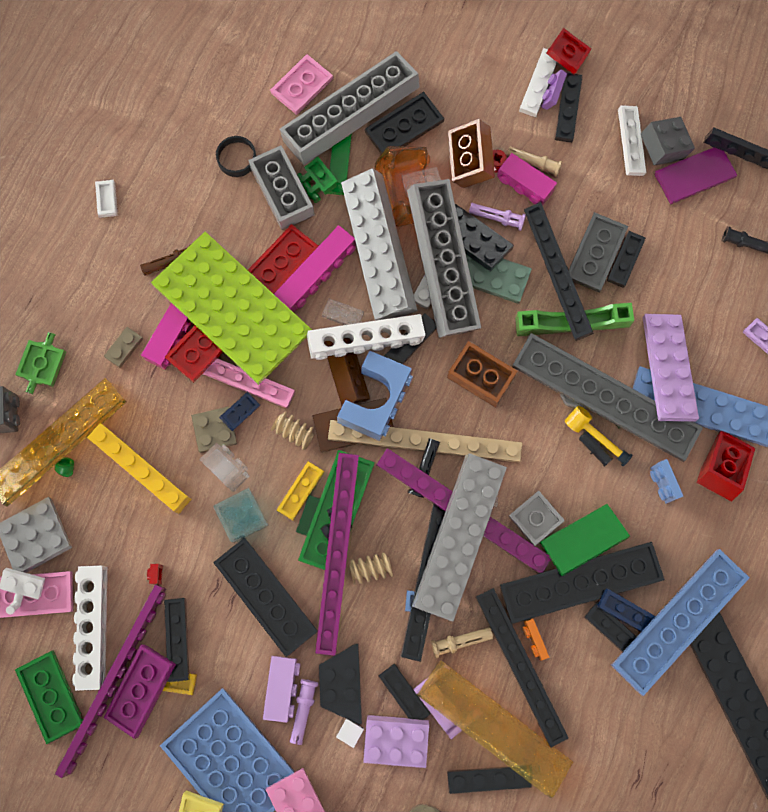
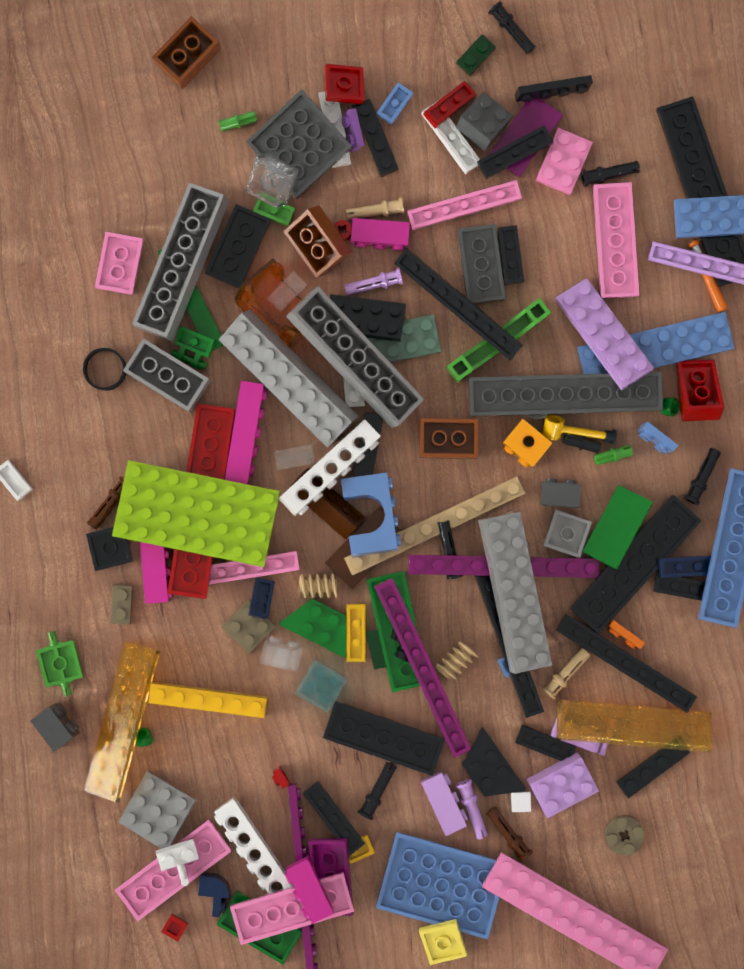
camera: 40 degrees left, 10 degrees up
(37, 637) = (214, 886): none -> dark blue brick
(85, 696) = (282, 912): none -> bright pink plate
(109, 687) = (309, 890): none -> dark pink brick
(142, 296) = (108, 550): none -> black plate
(222, 645) = (373, 799): none -> black pin
(274, 465) = (320, 625): none -> green wing
(321, 766) = (514, 841): none -> reddish brown pin
(452, 114) = (281, 215): none -> bright green plate
(463, 86) = (272, 180): none -> clear brick
(464, 33) = (237, 121): none -> bright green axle
(503, 75) = (303, 139): none -> dark grey plate
(542, 429) = (527, 455): none -> light orange brick
(550, 480) = (560, 494): none -> dark grey brick
(600, 89) = (394, 103): none -> medium blue plate
(611, 198) = (464, 205): none -> bright pink plate
(618, 475) = (613, 455): none -> bright green axle
(644, 113) = (449, 104): none -> red tile
(679, 179) = (515, 152): none -> black plate
(680, 547) = (698, 484): none -> black pin
(690, 91) = (475, 55): none -> dark green plate
(692, 464) = (670, 406): none -> green tile
(716, 212) = (564, 161): none -> bright pink plate
(724, 299) = (615, 240): none -> bright pink plate
(729, 79) = (498, 10): none -> black pin

